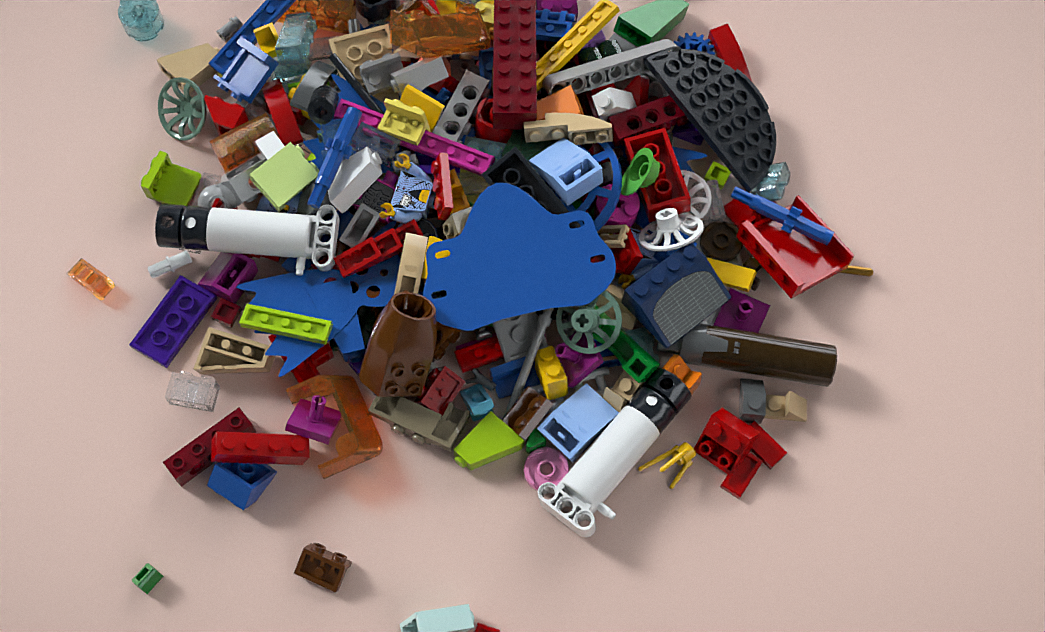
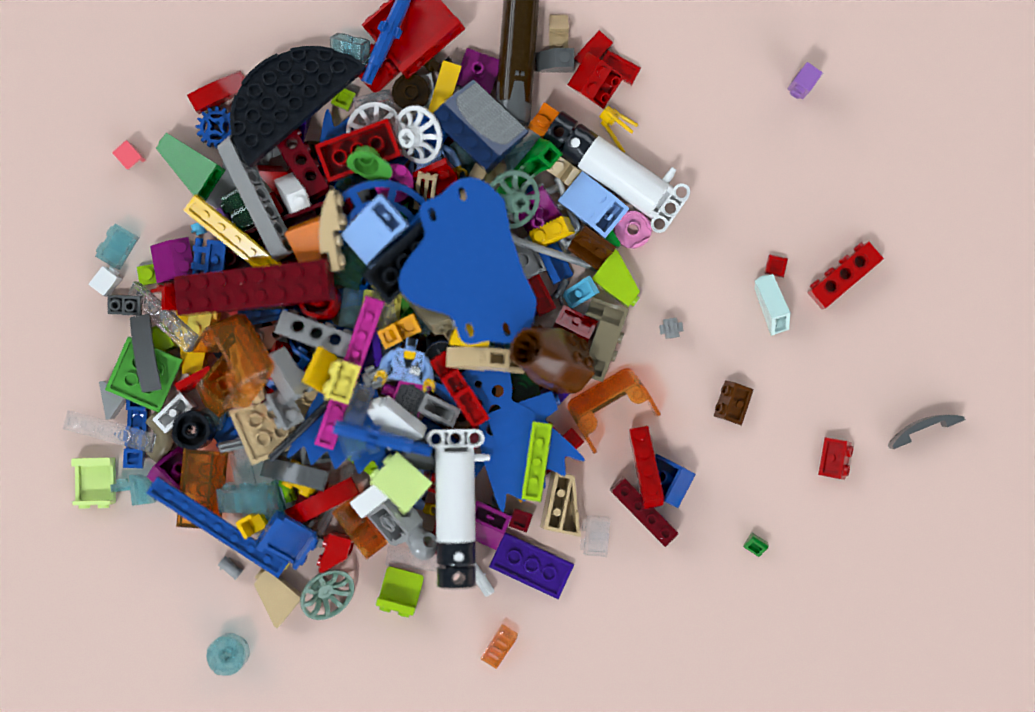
camera: 90 degrees left, 20 degrees up
(314, 420) = (614, 427): magenta tile -> none
(323, 104) = (327, 457): black piece -> none
(422, 499) = (671, 328): none -> light grey gear
(442, 186) = (400, 338): red plate -> none

